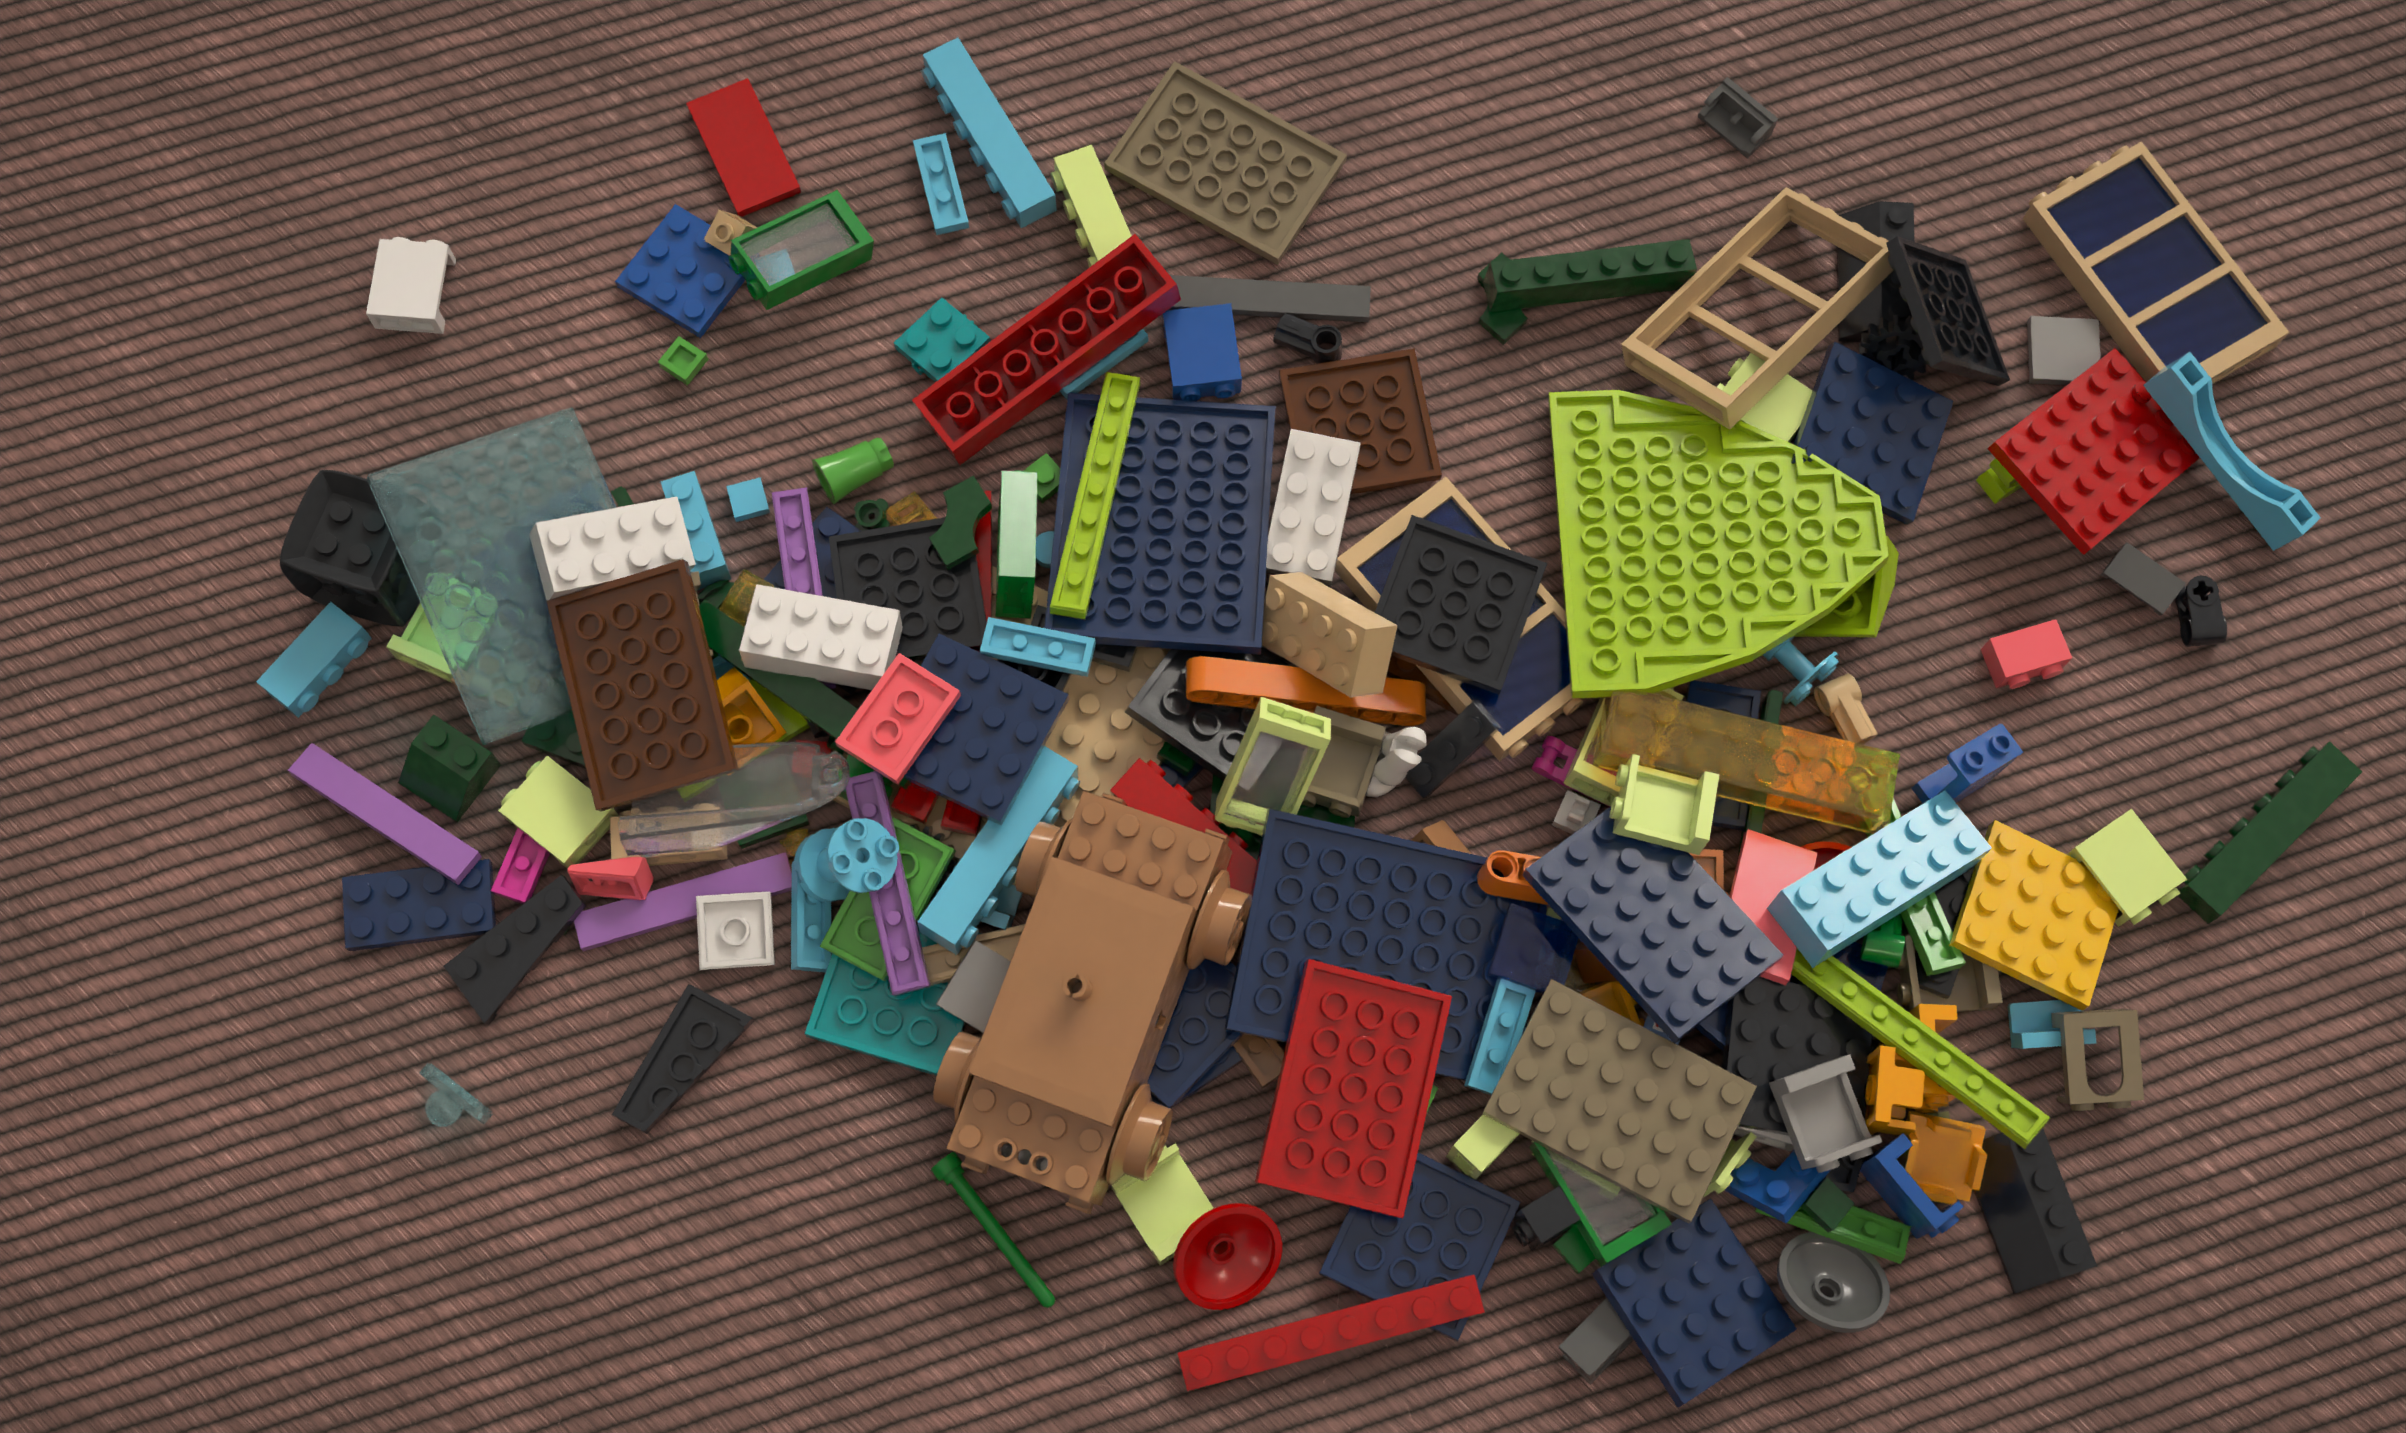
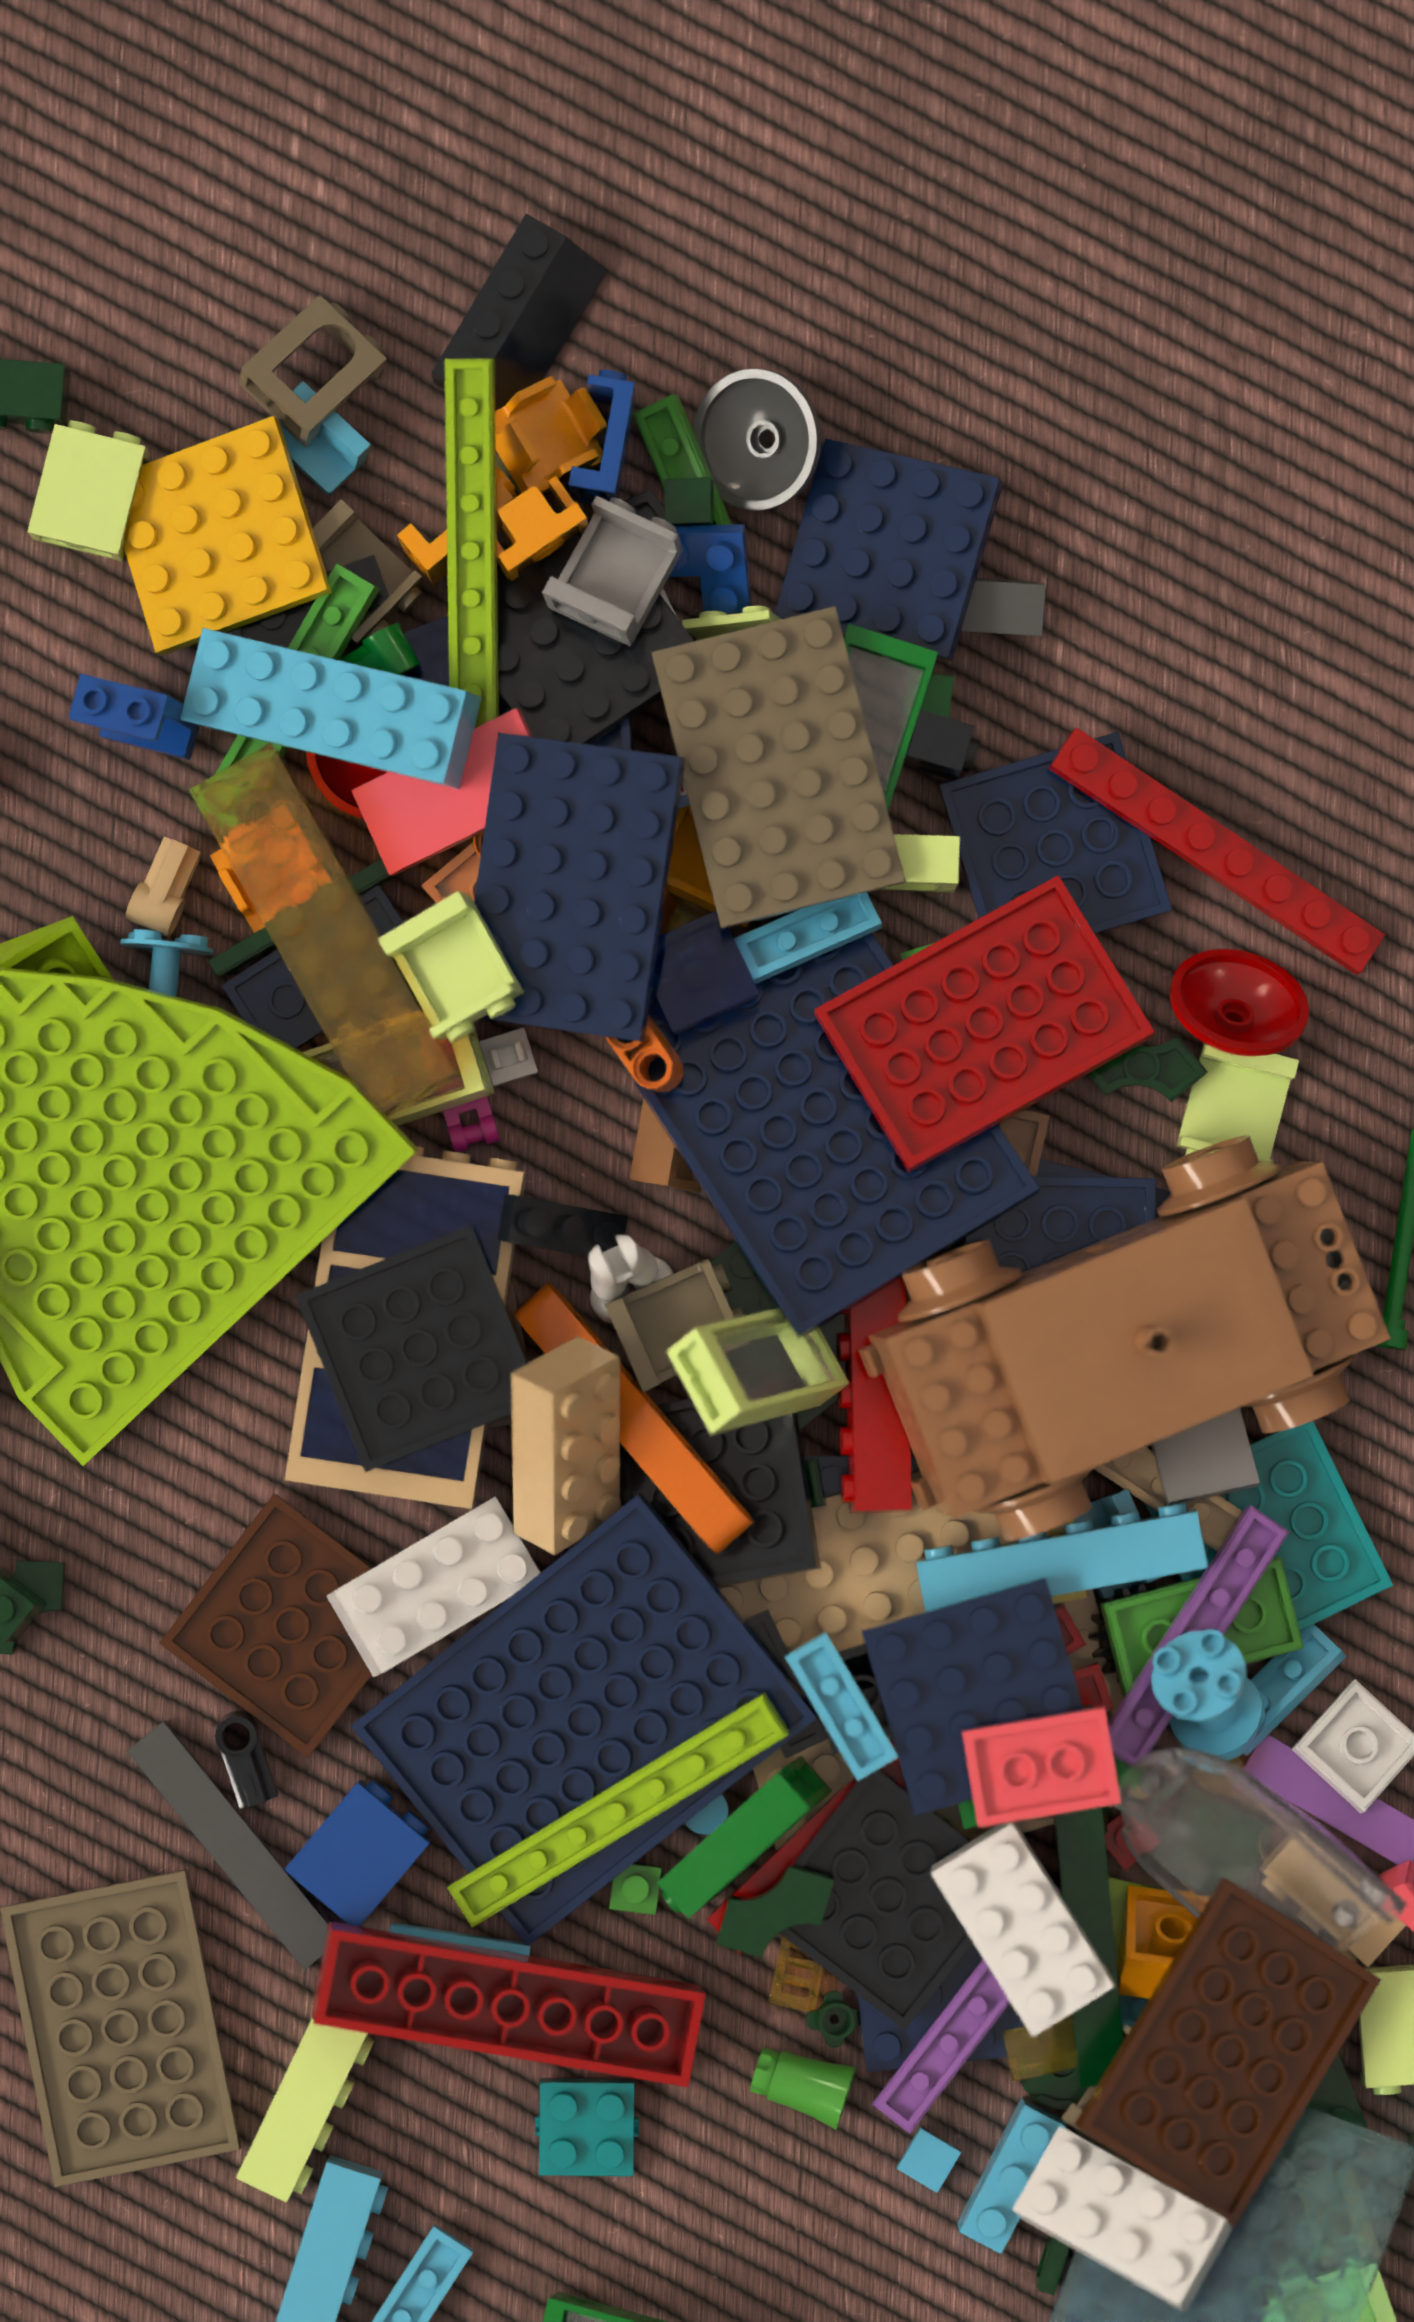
camera: 130 degrees left, 15 degrees up
(1229, 1180) = (1164, 1068): none -> dark green tile

